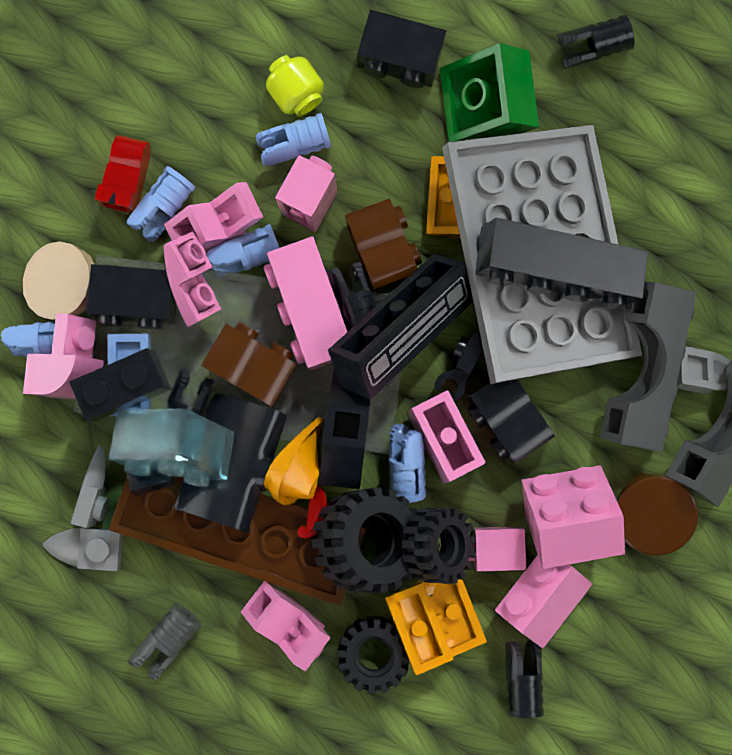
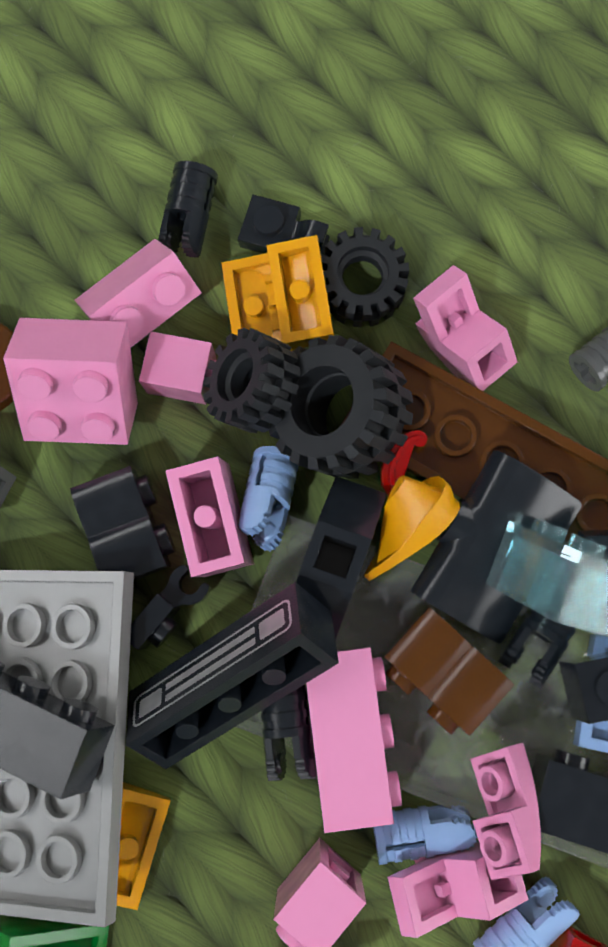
camera: 170 degrees left, 5 degrees down
(382, 244) = (232, 798): reddish brown brick -> none
(453, 682) = (276, 222): none -> black plate

